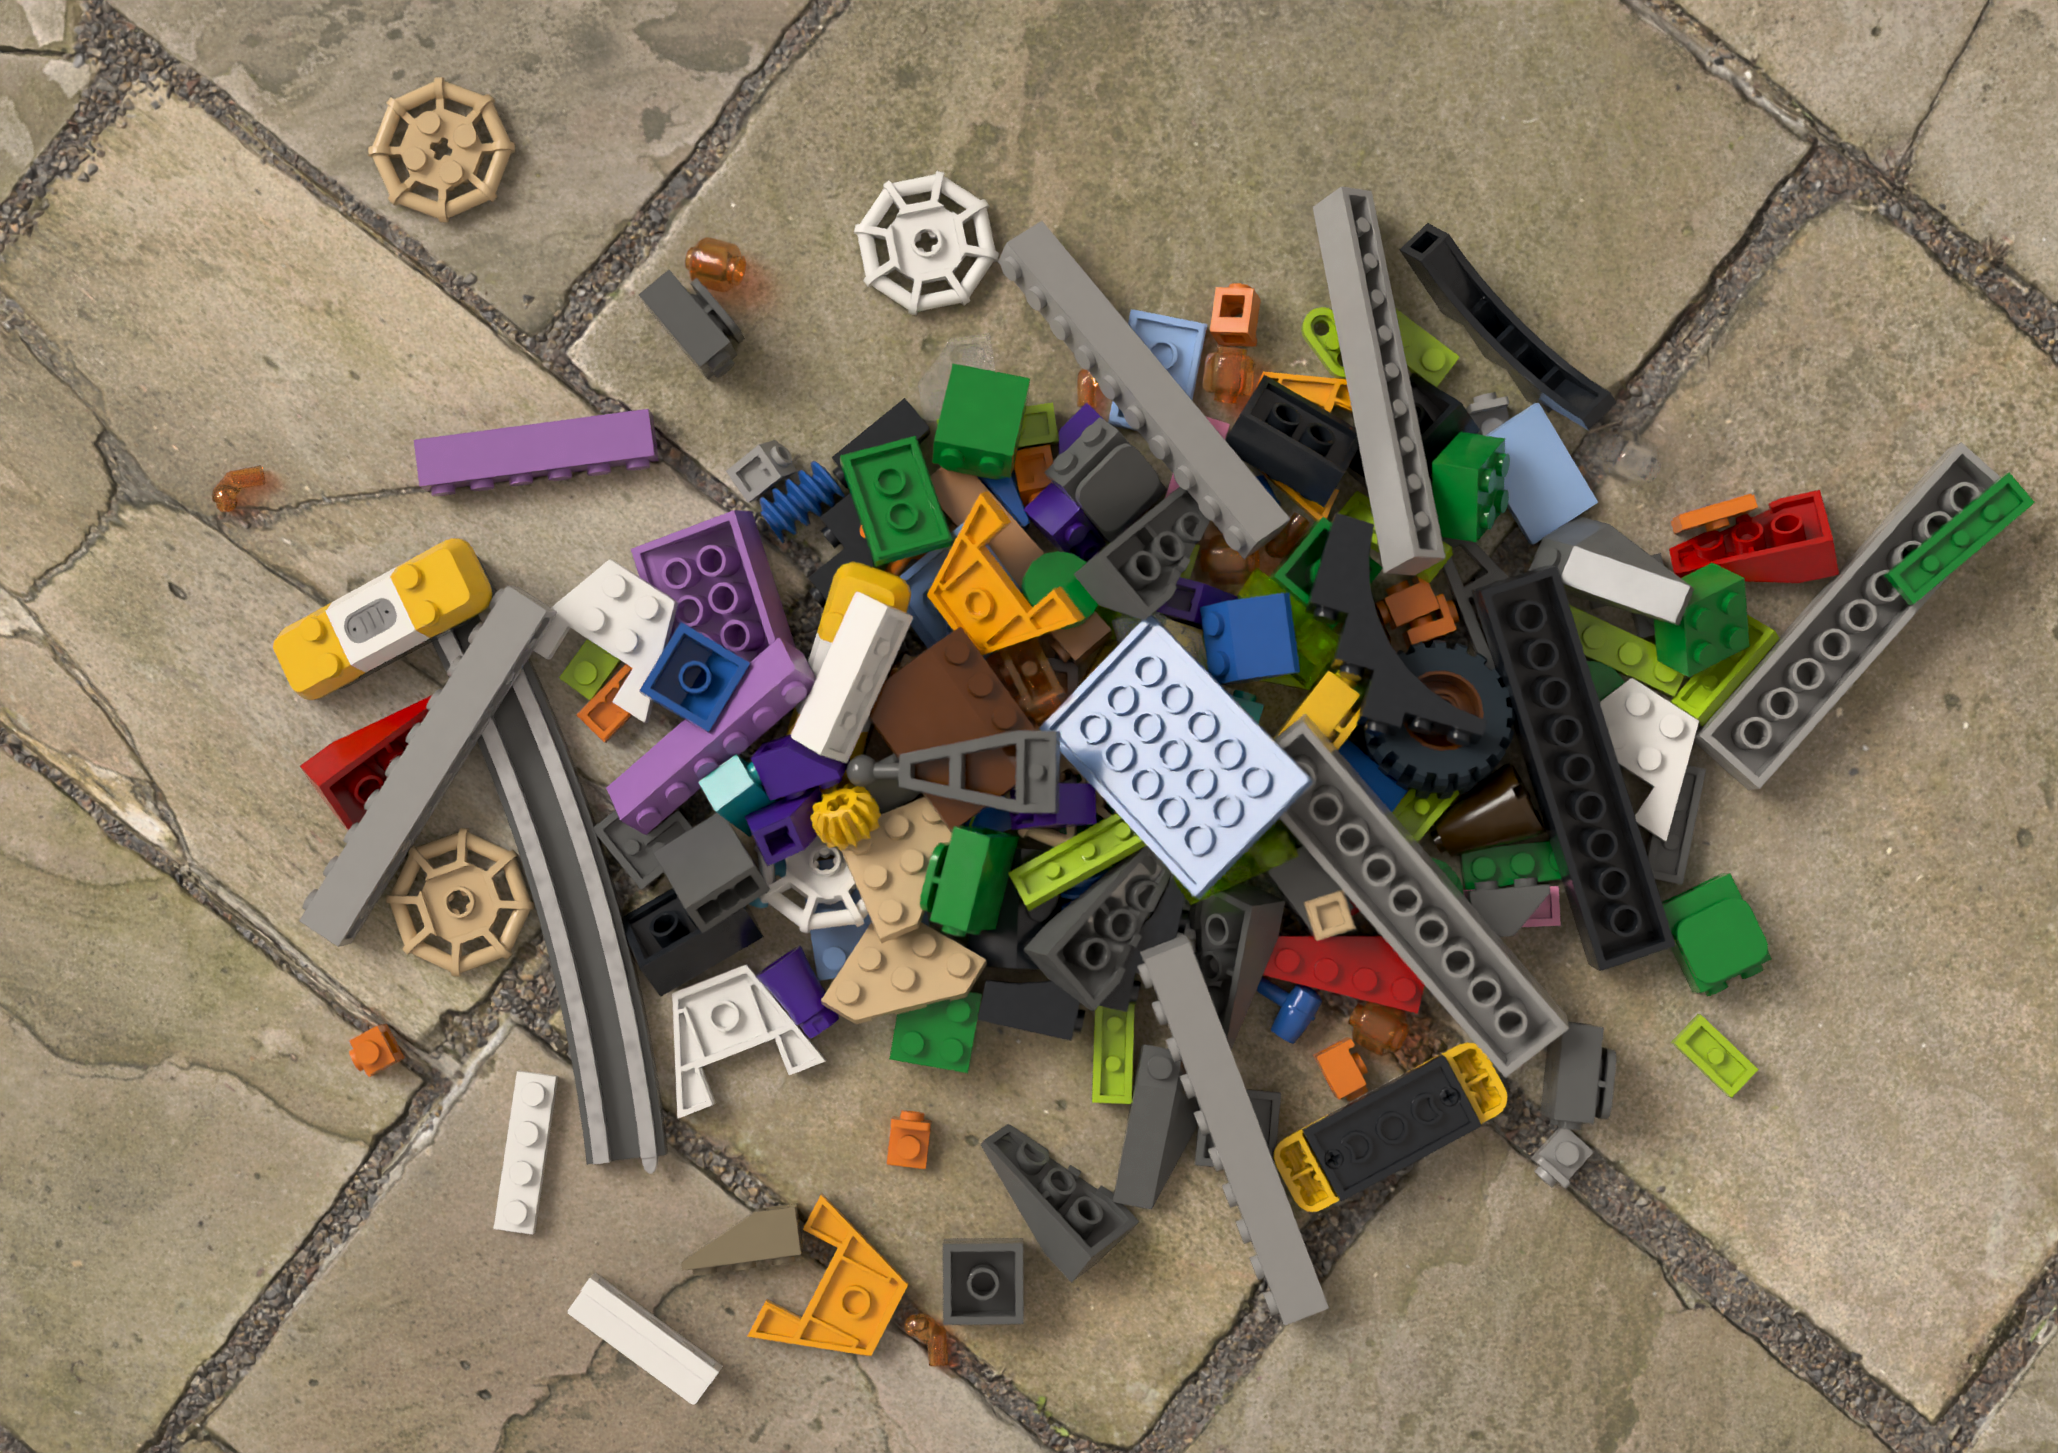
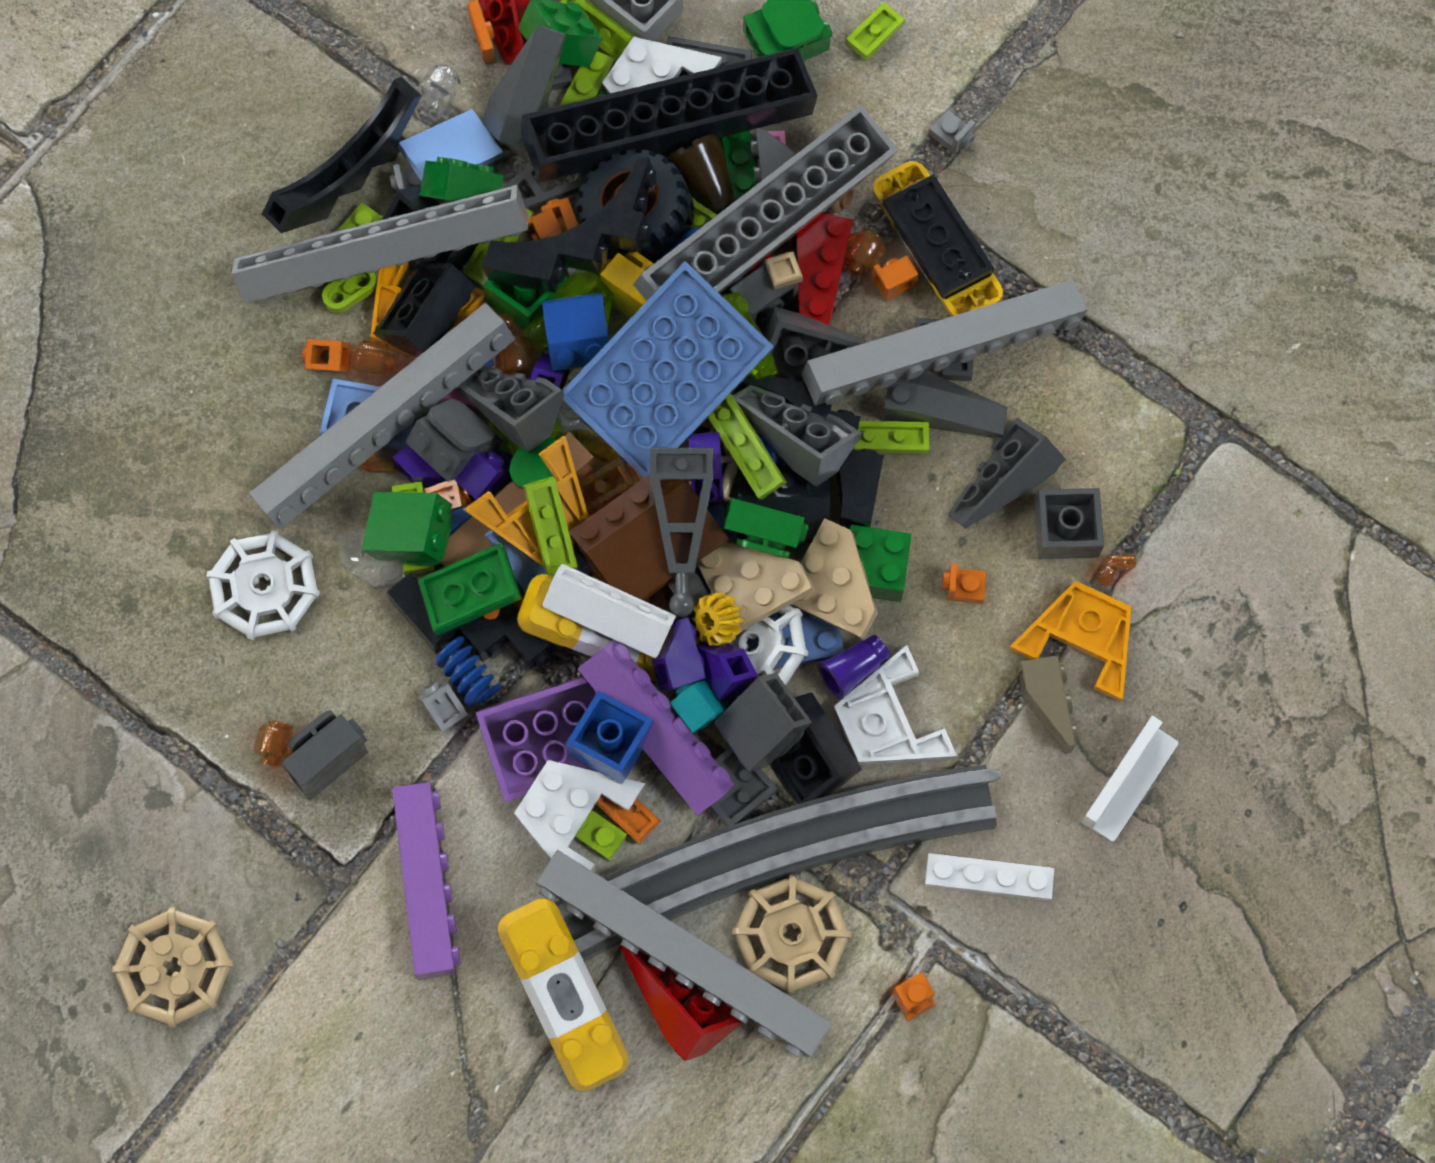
camera: 90 degrees left, 15 degrees down
(231, 484) = (450, 1133): clear orange arm -> none
(967, 602) = (550, 525): none -> lime plate
(1295, 1010) = (853, 309): blue piece -> none
(1578, 1077) = (899, 111): dark grey brick -> none

